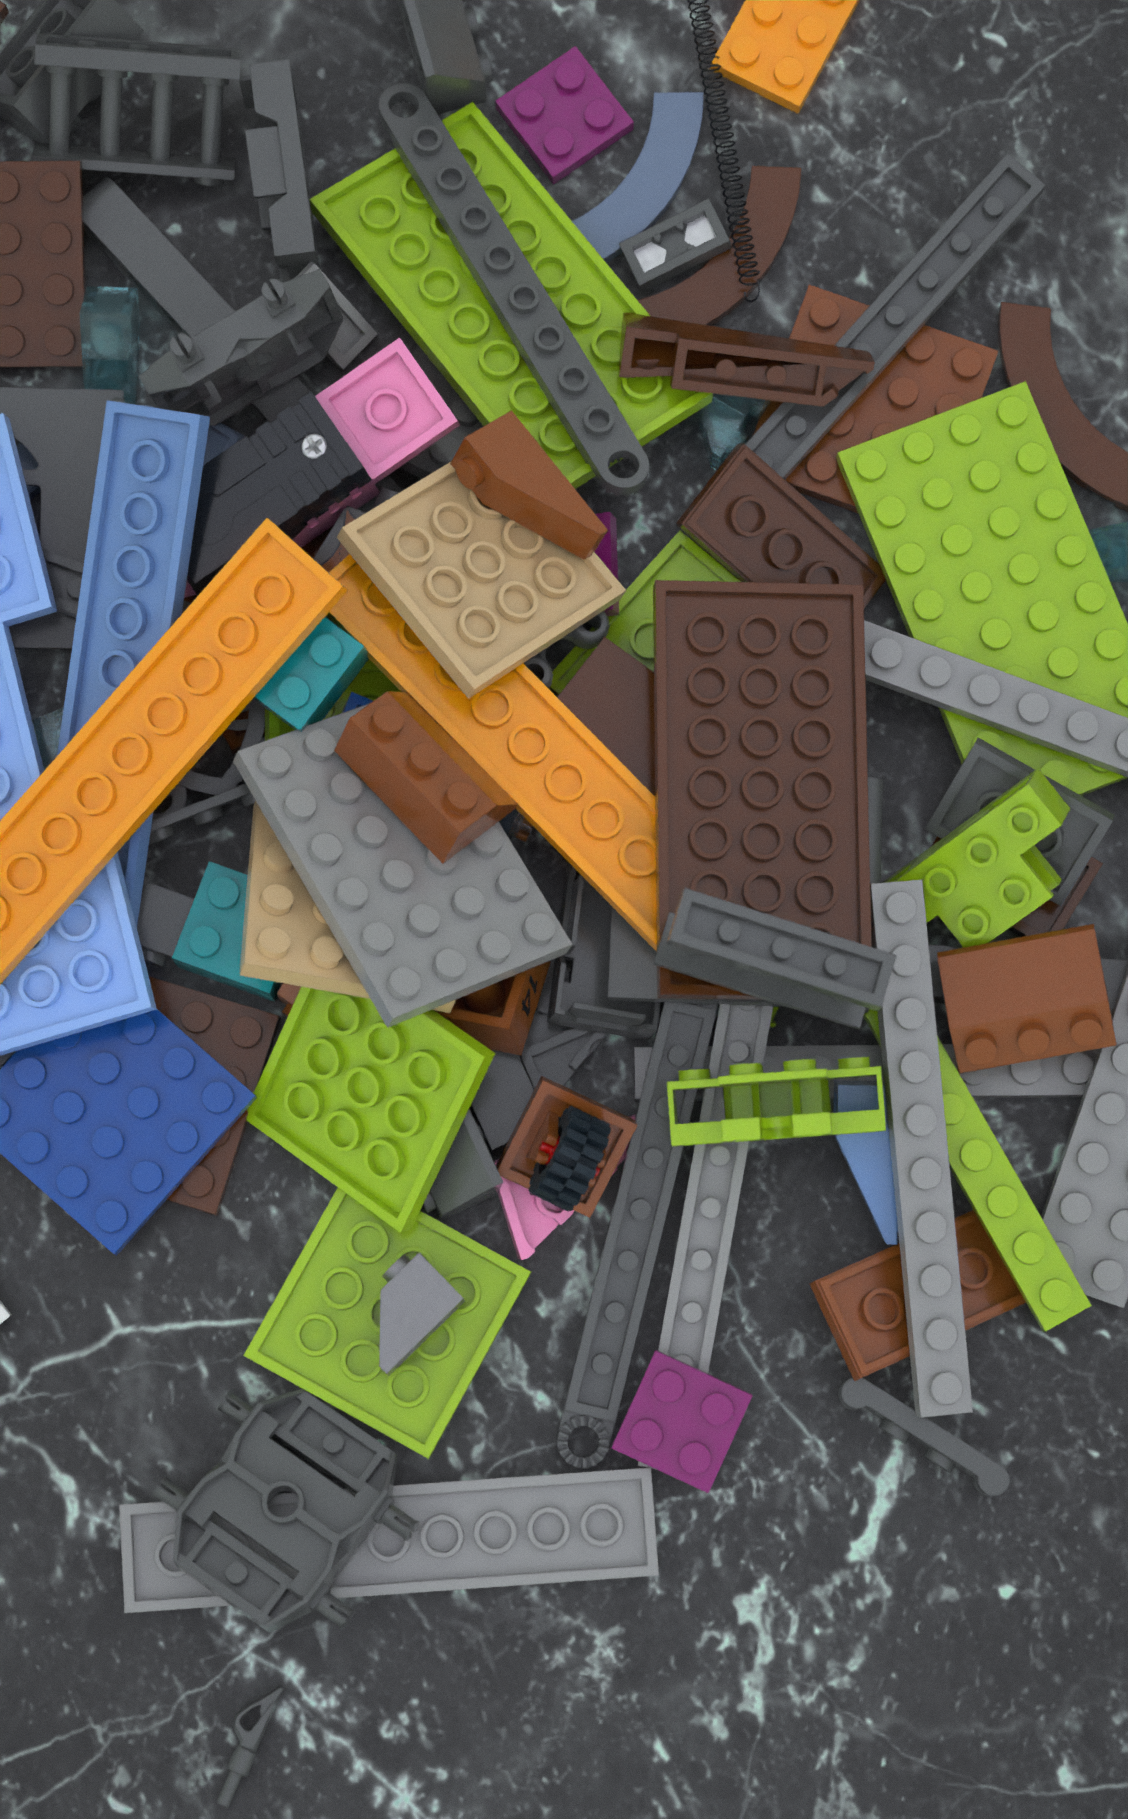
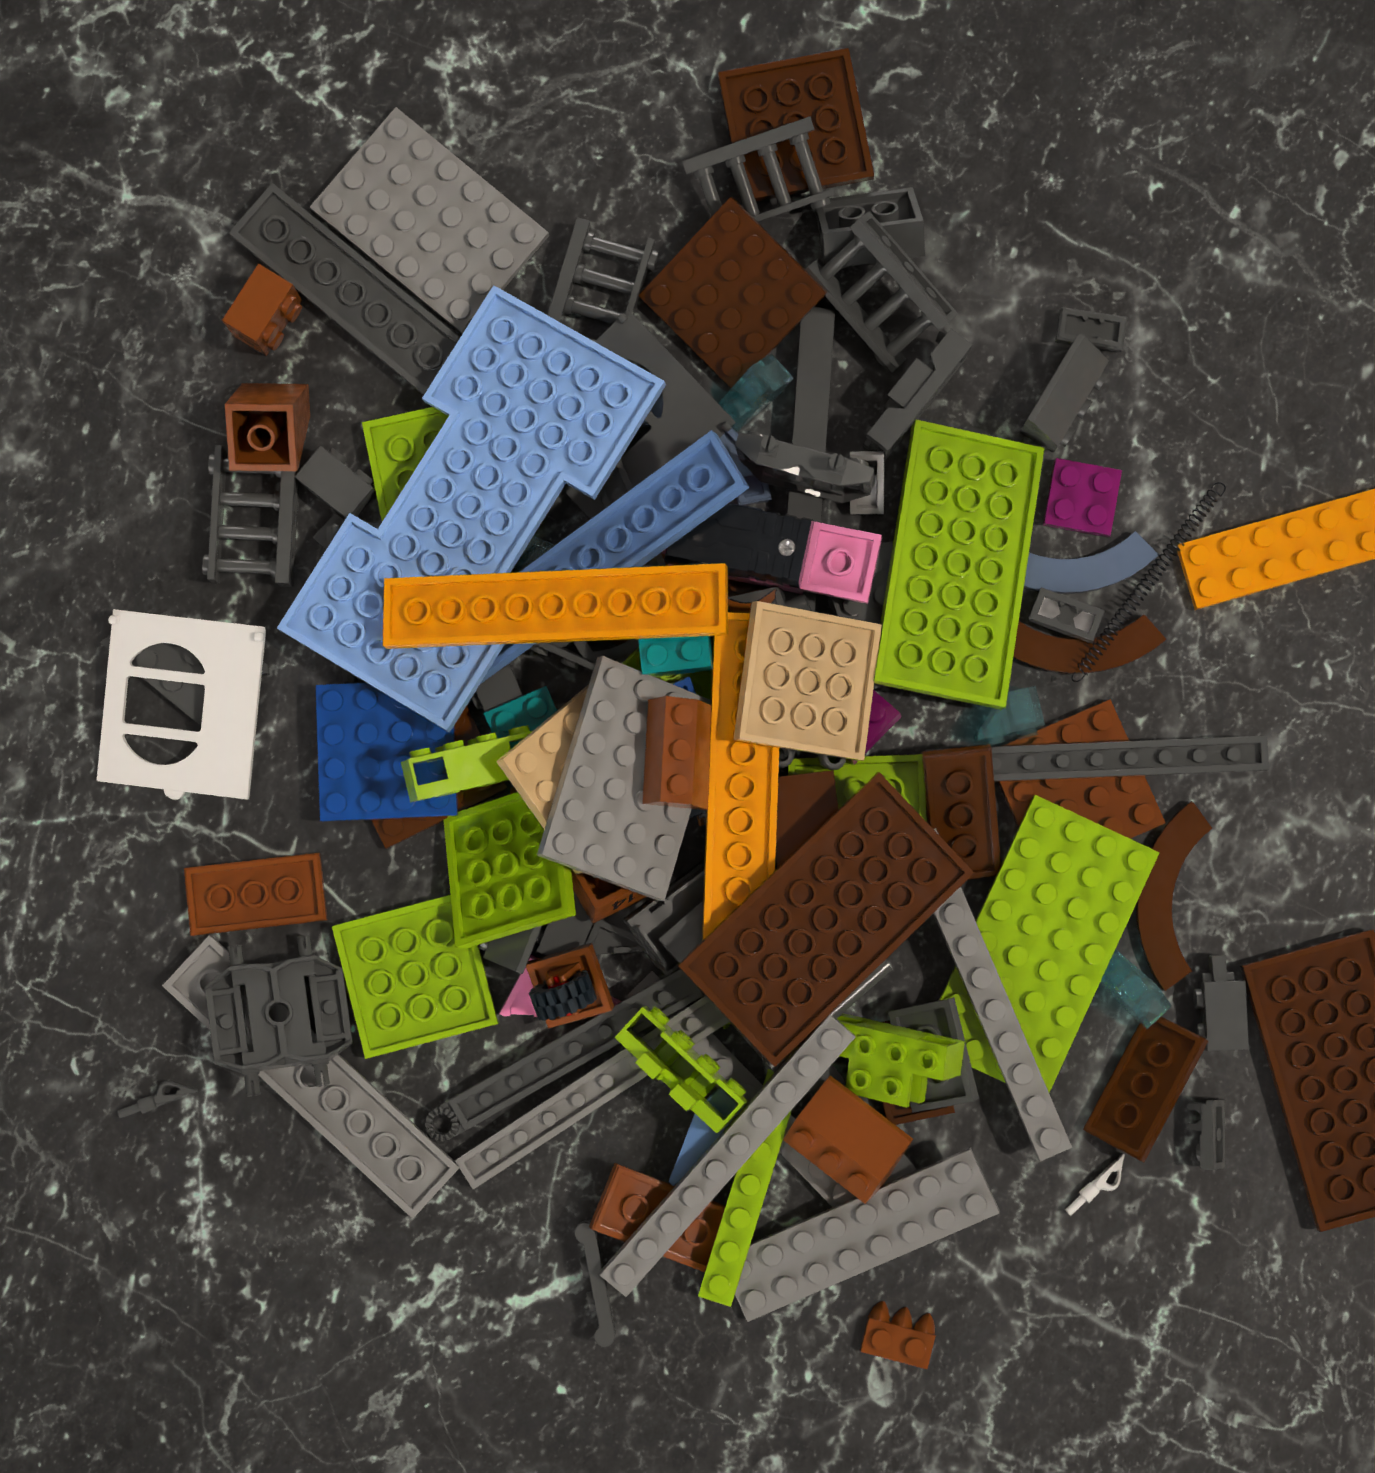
camera: 45 degrees right, 5 degrees up
(124, 1411) = (255, 894): none -> dark orange tile
(216, 1016) = (465, 765): none -> lime piece
(412, 1308) = (426, 985): flat silver slope -> none
(513, 289) = (963, 561): dark grey plate -> none
(523, 483) = (866, 659): dark orange slope -> none
(682, 1421) = (494, 1162): magenta plate -> none
(737, 361) = (1032, 704): reddish brown wedge -> none
(774, 959) = (741, 1007): dark grey fence -> none

